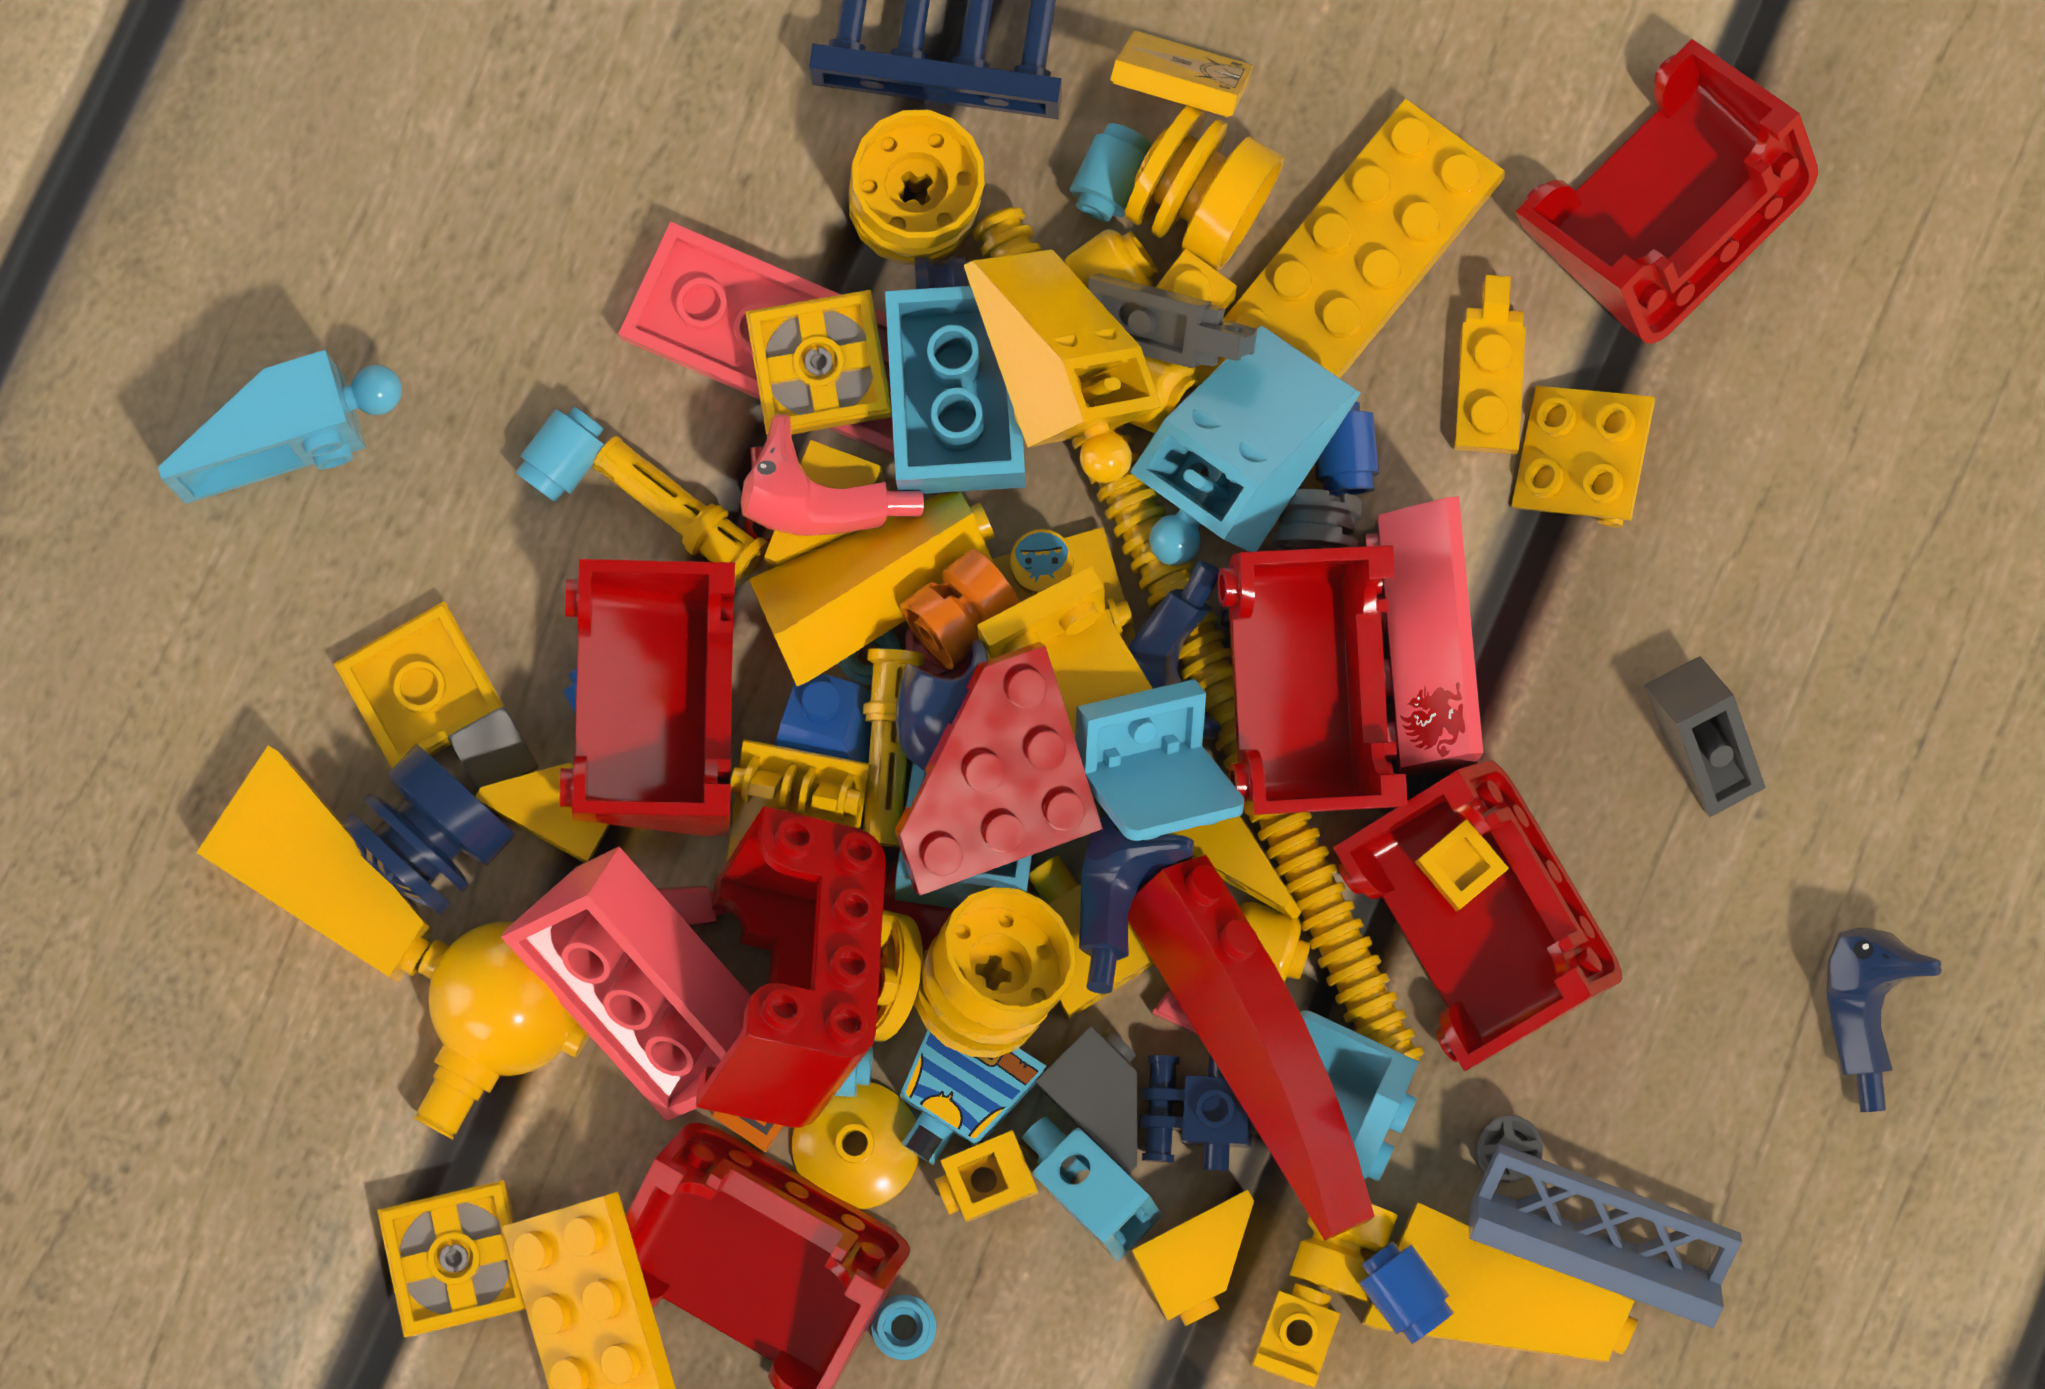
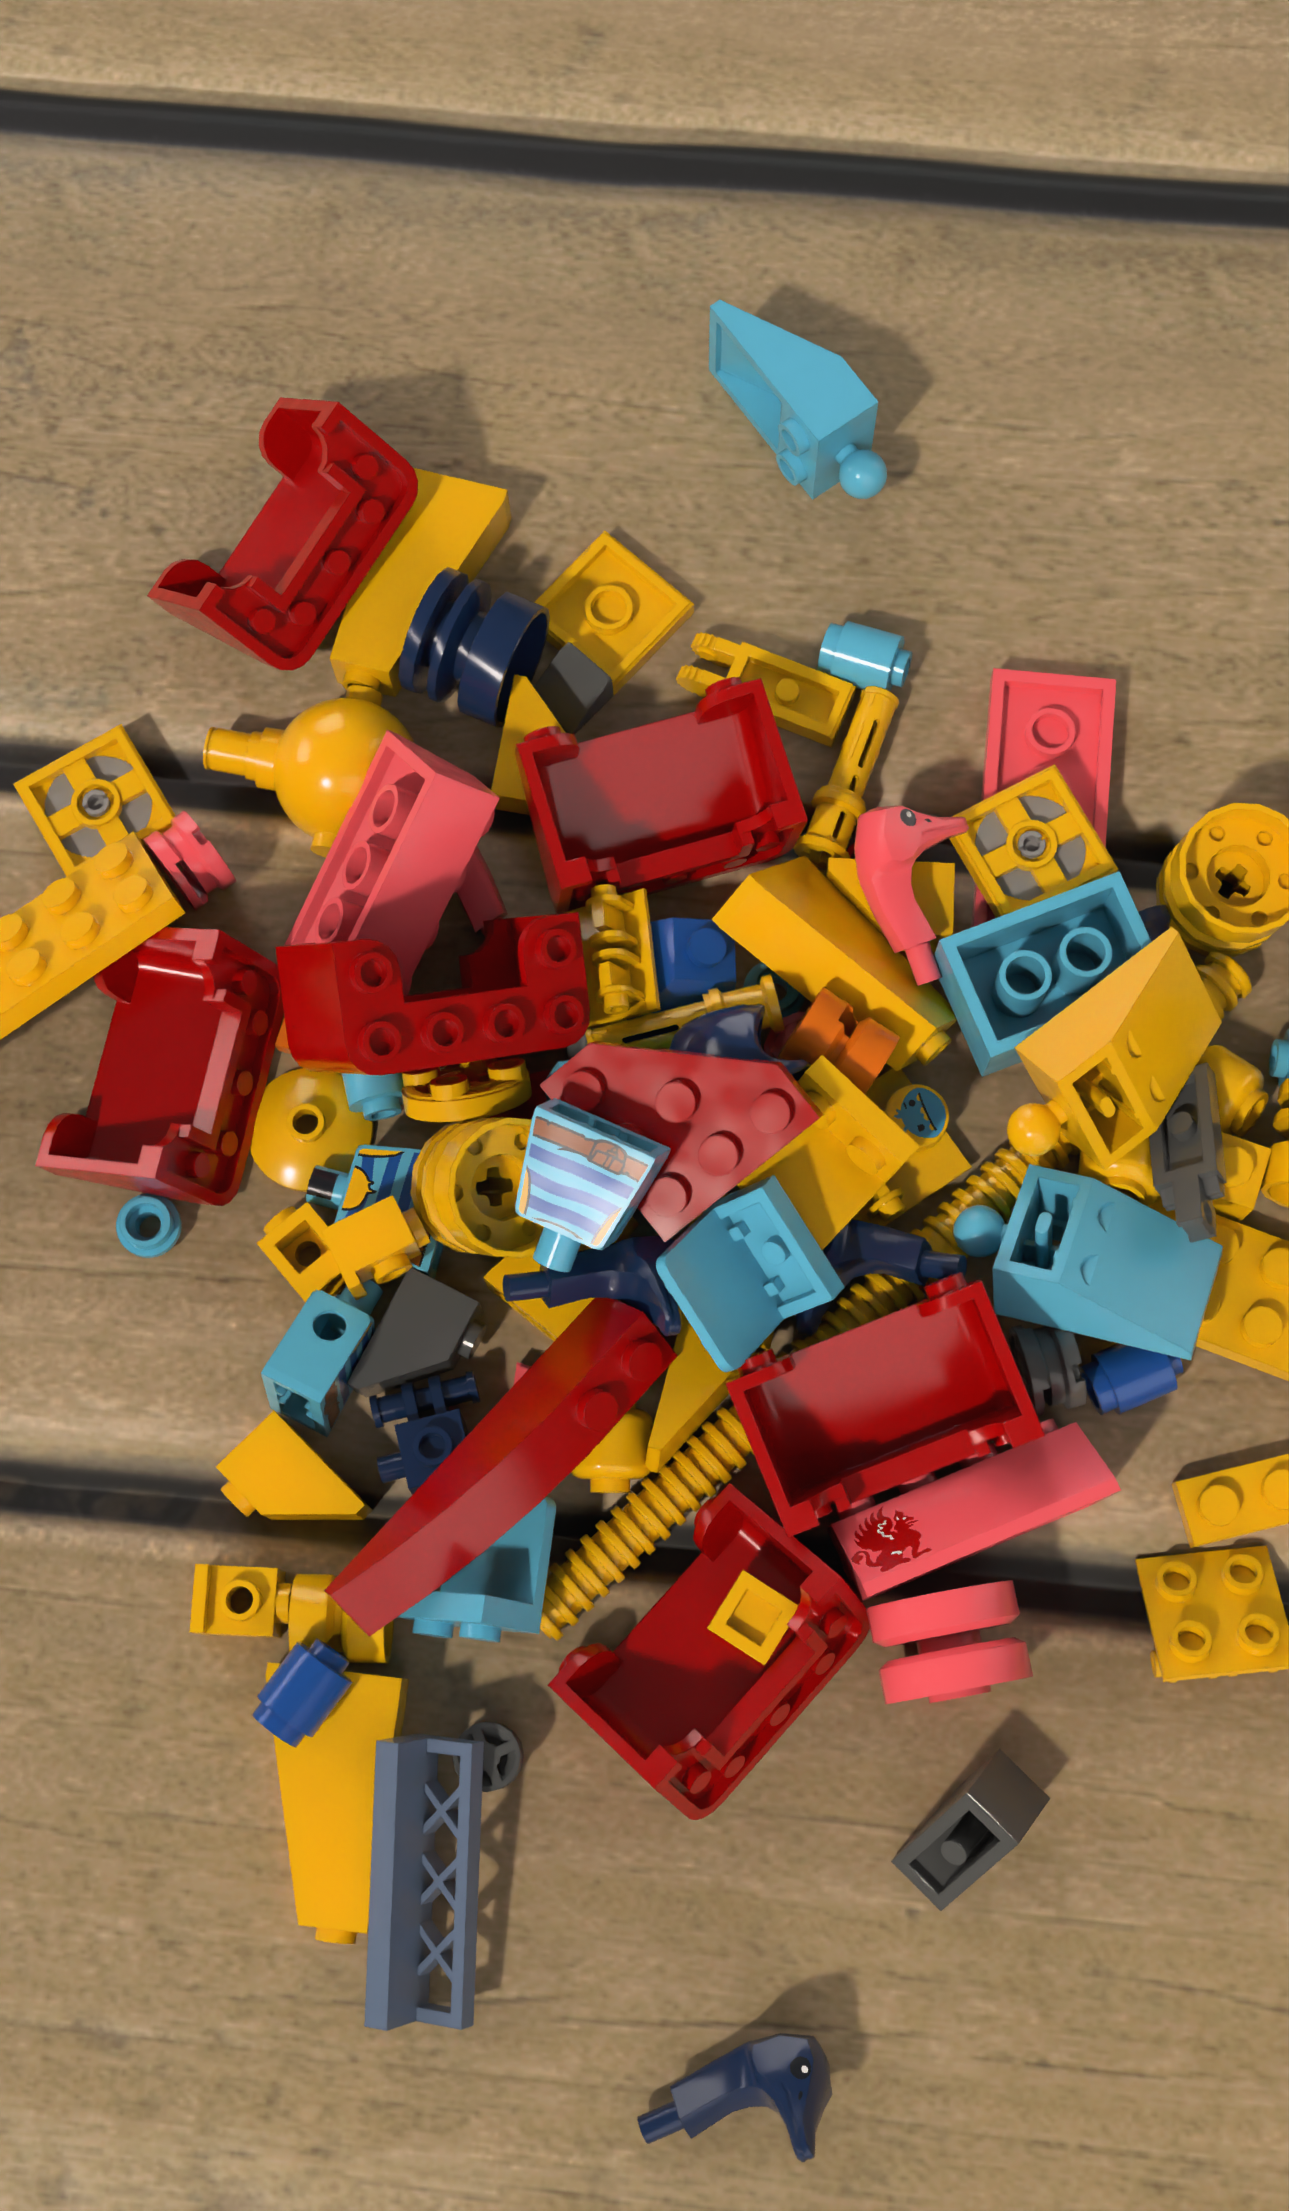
camera: 70 degrees right, 5 degrees down
(253, 971) = (308, 543): none -> red windscreen
(549, 1179) = (200, 860): none -> coral wheel
(580, 528) = (799, 696): none -> yellow hinge
(1010, 1102) = (375, 1244): none -> yellow brick
(1029, 880) = (582, 1180): none -> torso
(1550, 697) = (949, 1644): none -> coral wheel

